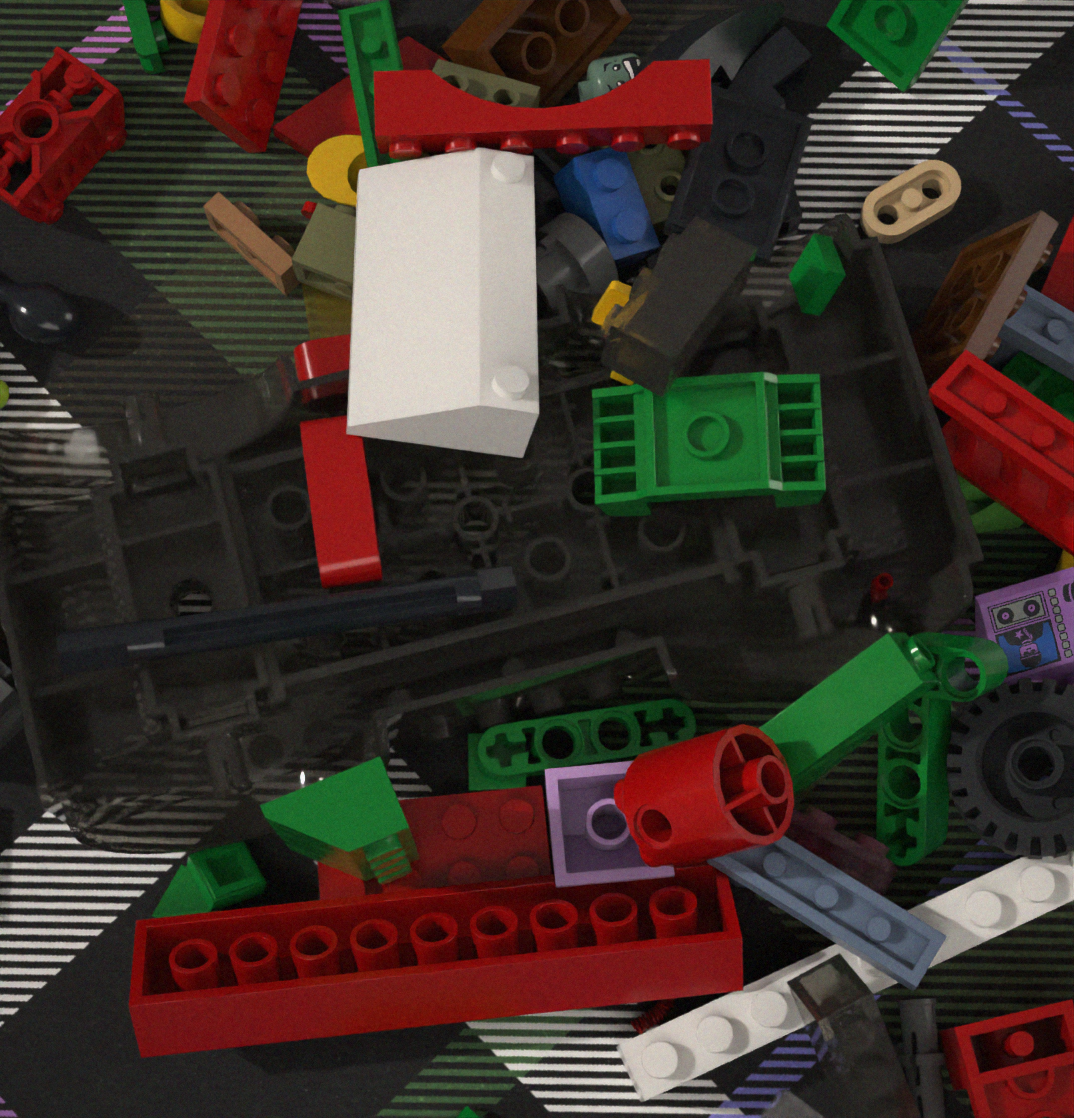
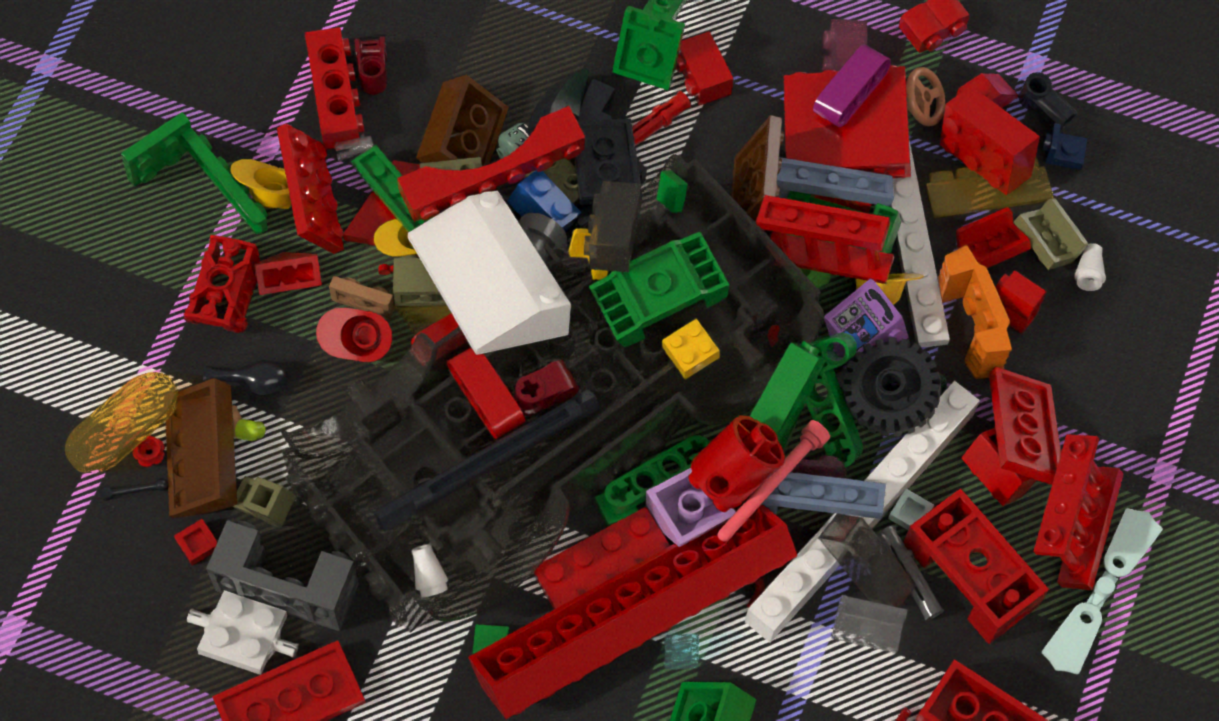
camera: 25 degrees left, 10 degrees down
(123, 761) = (428, 572): none -> white cone
(157, 154) = (287, 272): none -> red slope
(207, 302) = (354, 334): none -> red piece
(226, 875) = (502, 618): green tile -> none
(348, 823) = (564, 549): green slope -> none
(447, 534) = (549, 386): none -> dark red piece
(486, 1058) = (681, 651): none -> clear light blue slope
(714, 570) = (690, 348): none -> yellow piece
(859, 800) = (813, 436): none -> coral piece
(865, 134) = (660, 117): none -> red pin
(906, 202) = (695, 144): tan plate -> none
(976, 982) = (909, 509): none -> light aqua tile
(977, 79) = (704, 69): none -> red brick

